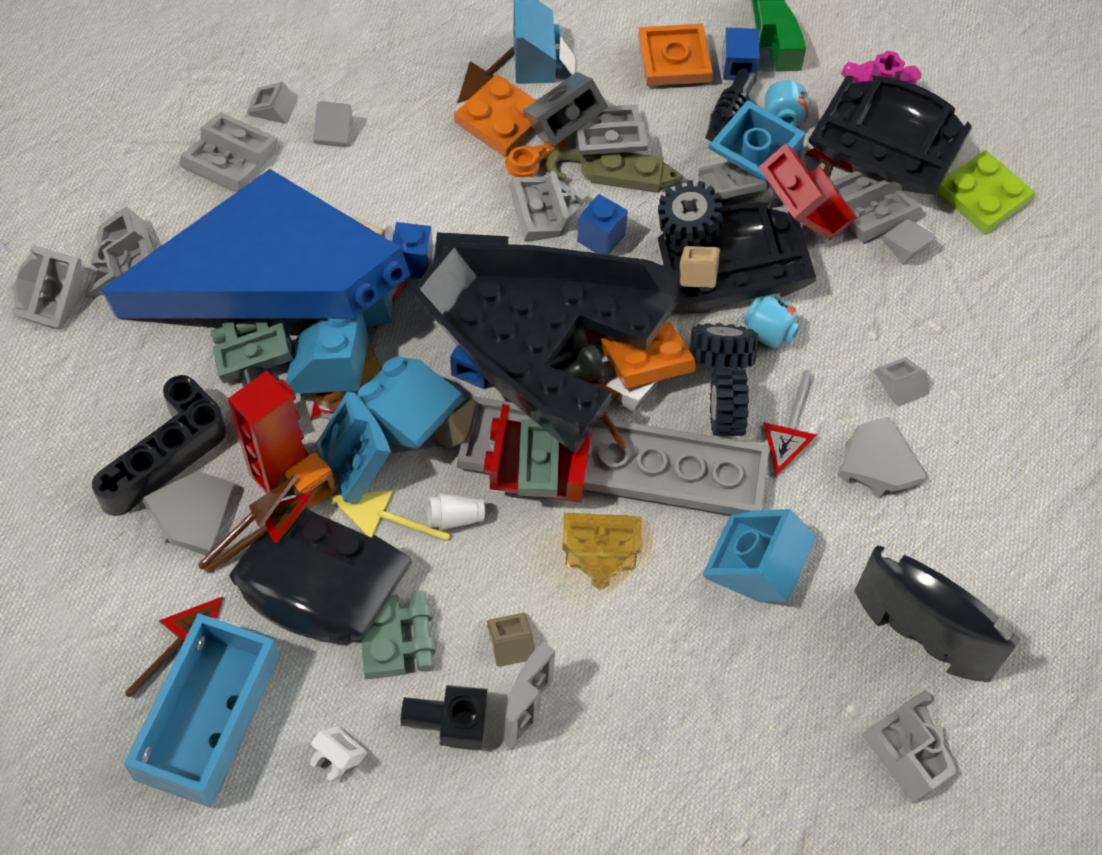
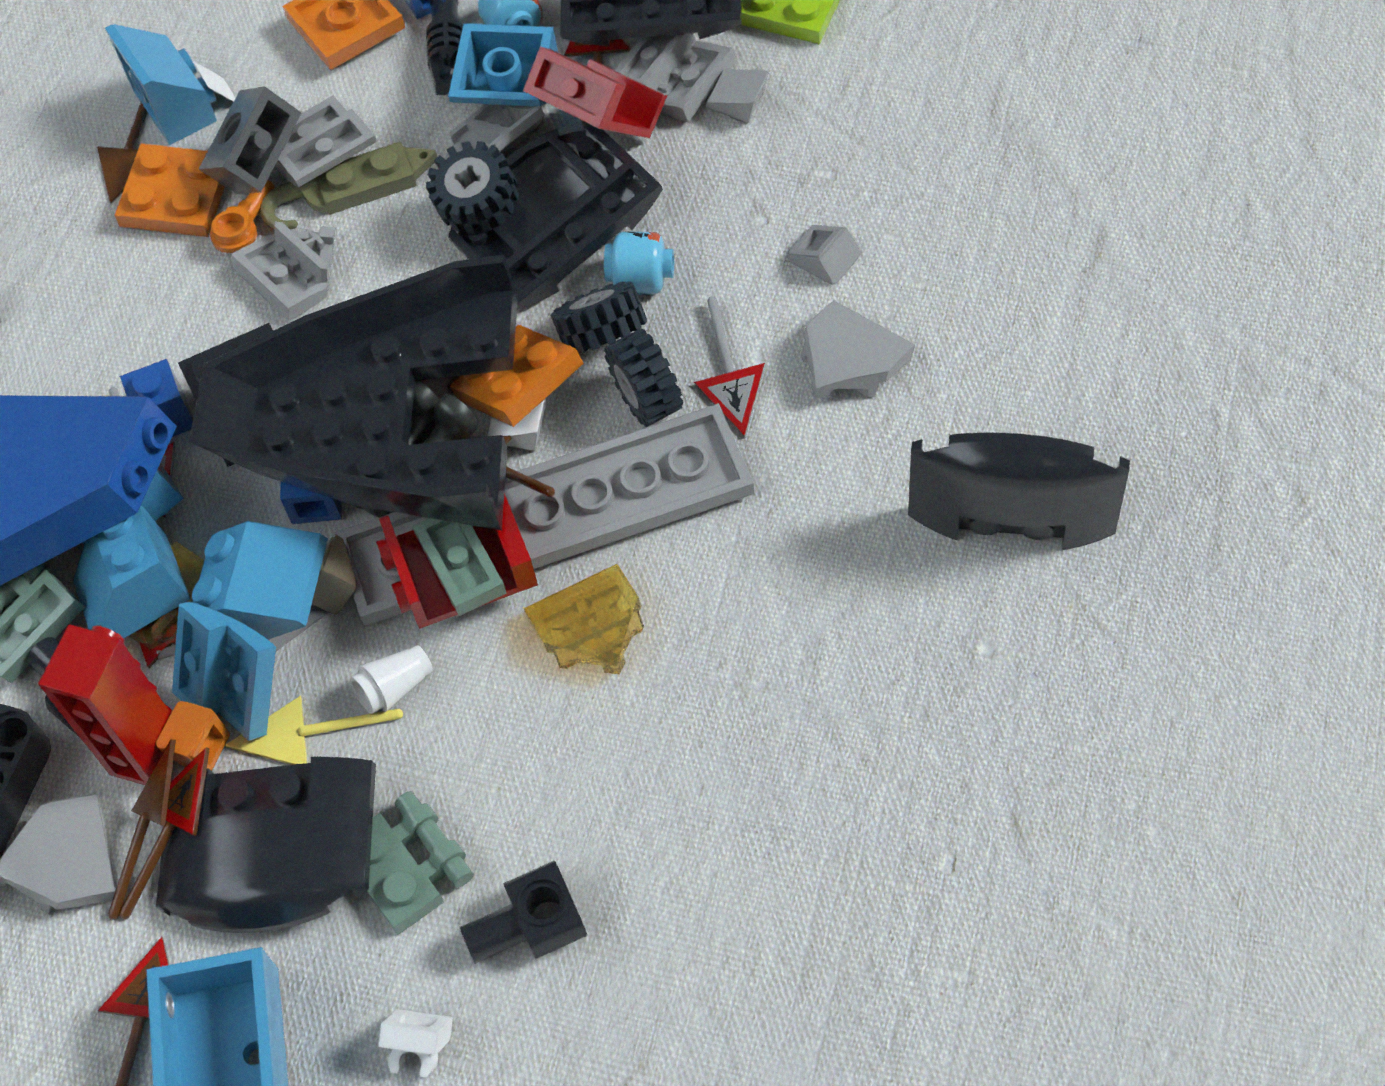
camera: 20 degrees left, 0 degrees up
(511, 639) = (547, 789): dark tan slope -> none
(525, 696) = (608, 836): light grey slope -> none
(602, 225) = (373, 253): blue brick -> none
(699, 266) = (518, 241): tan slope -> none
(761, 554) = (781, 530): dark azure slope -> none
(912, 747) = (1076, 653): light grey slope -> none

